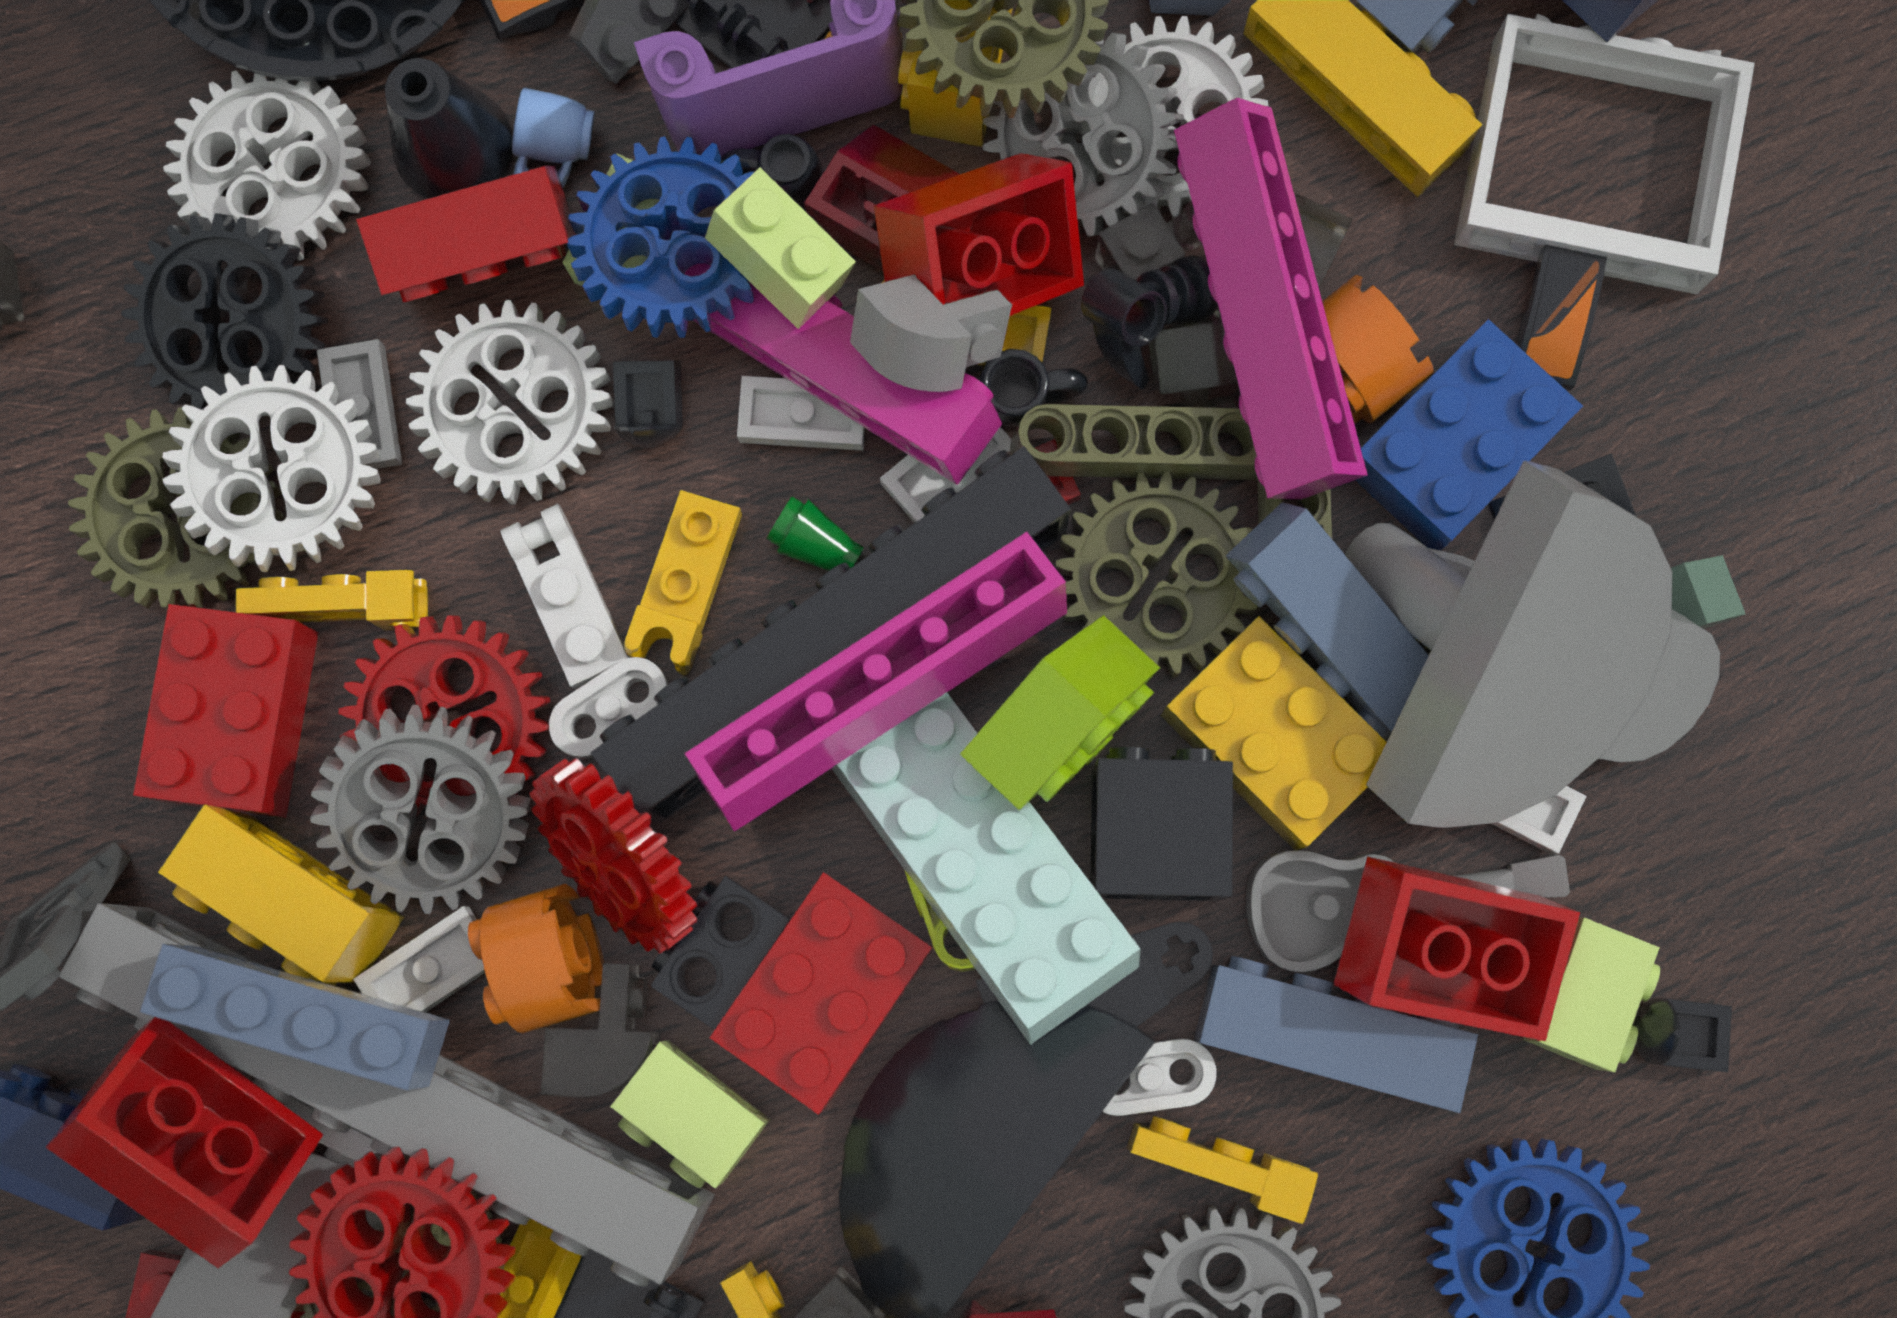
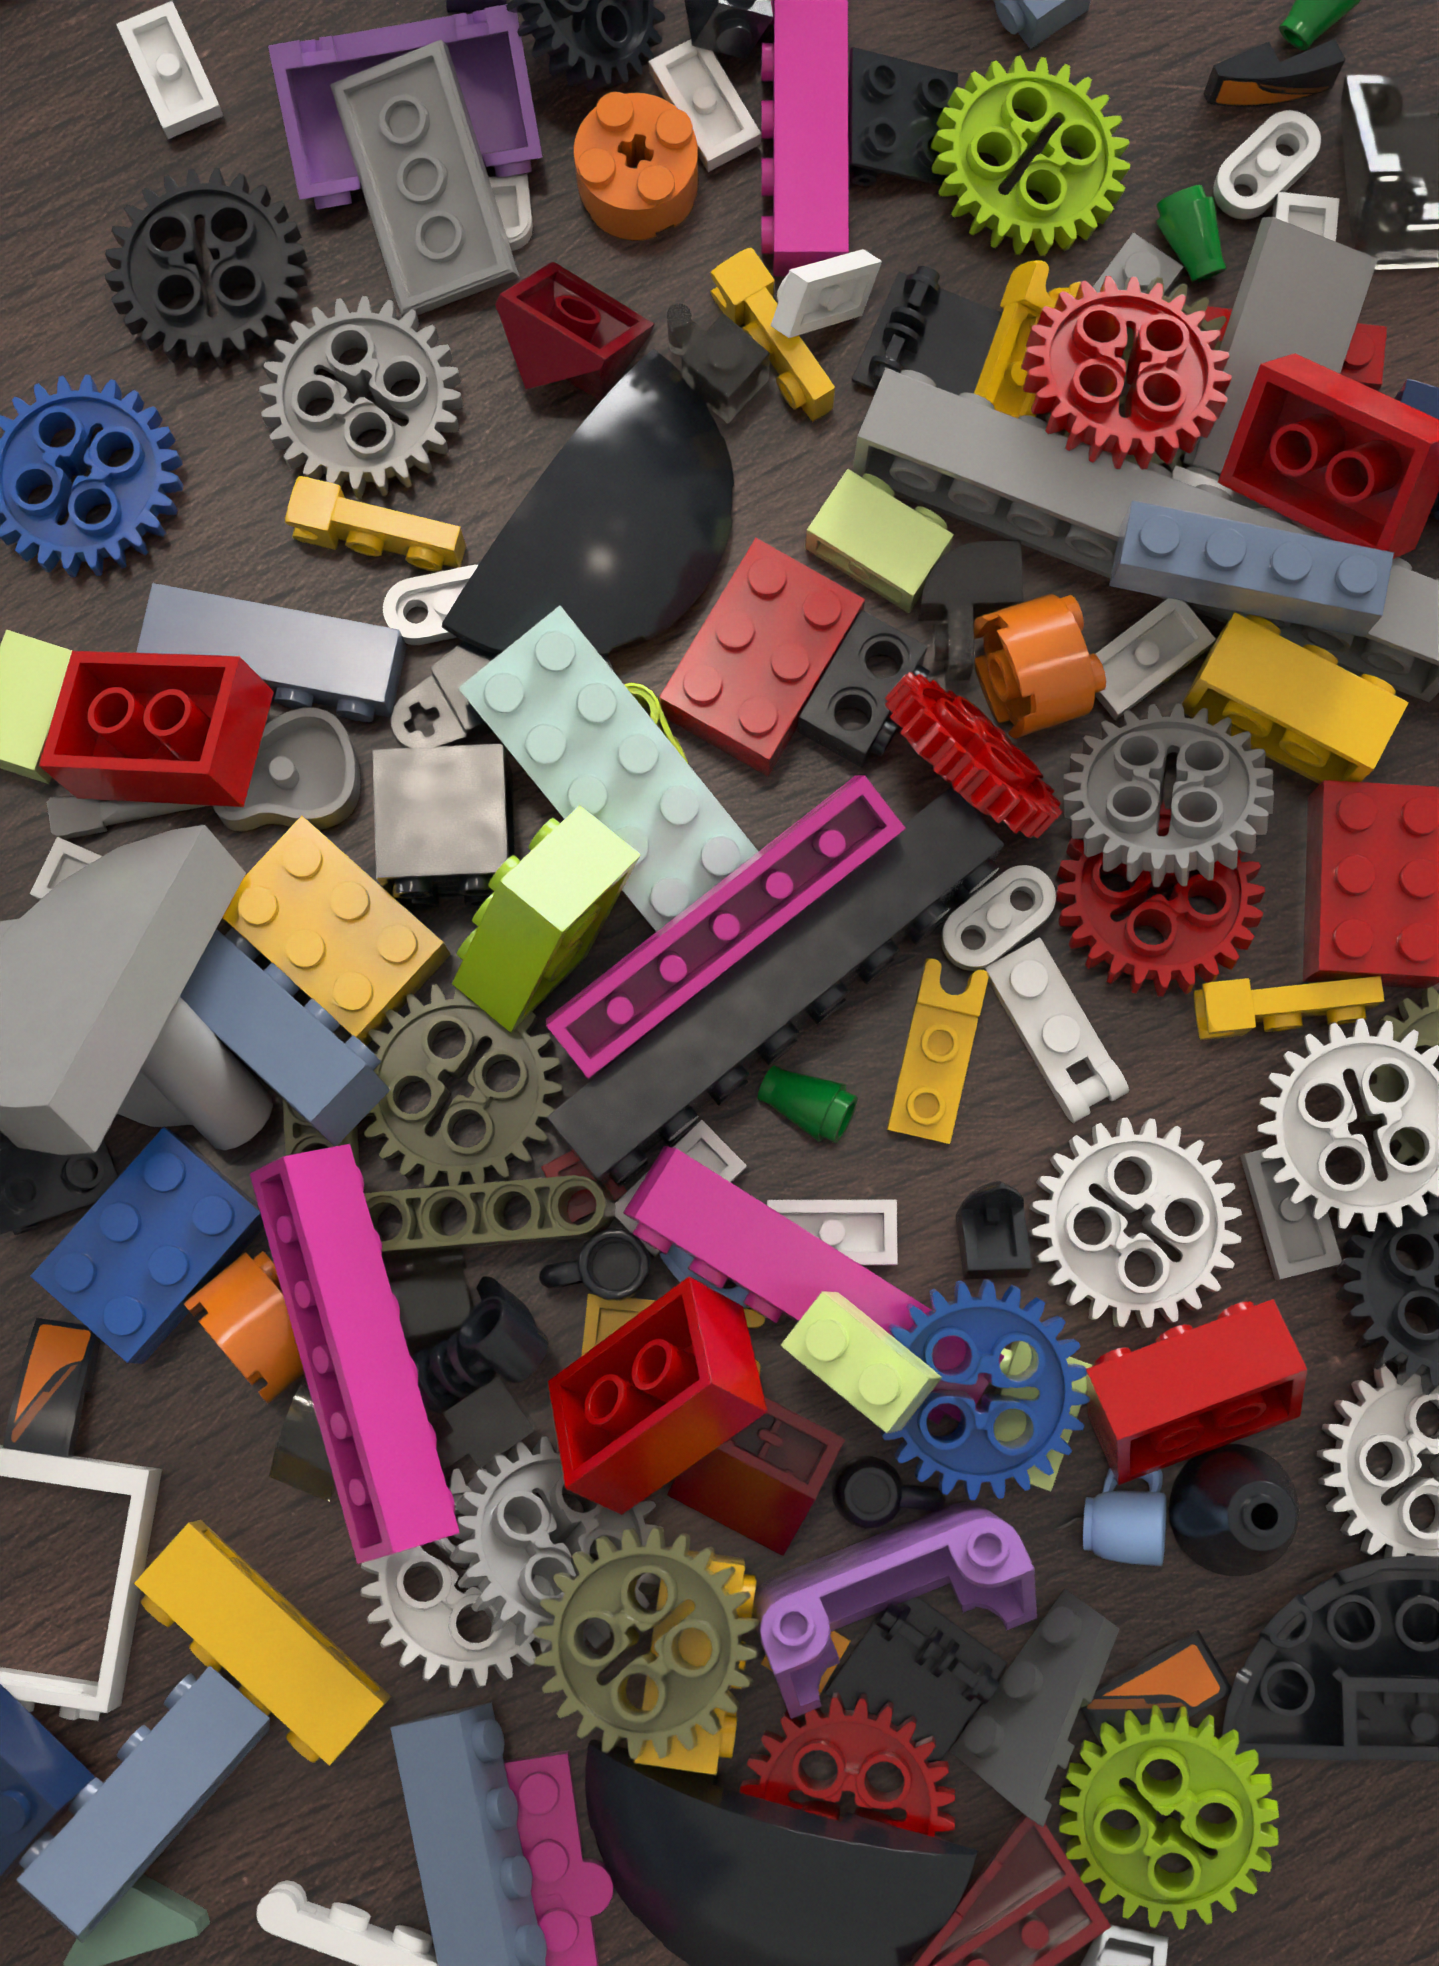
camera: 170 degrees right, 0 degrees up
(925, 342) = (708, 1267): light grey brick -> none

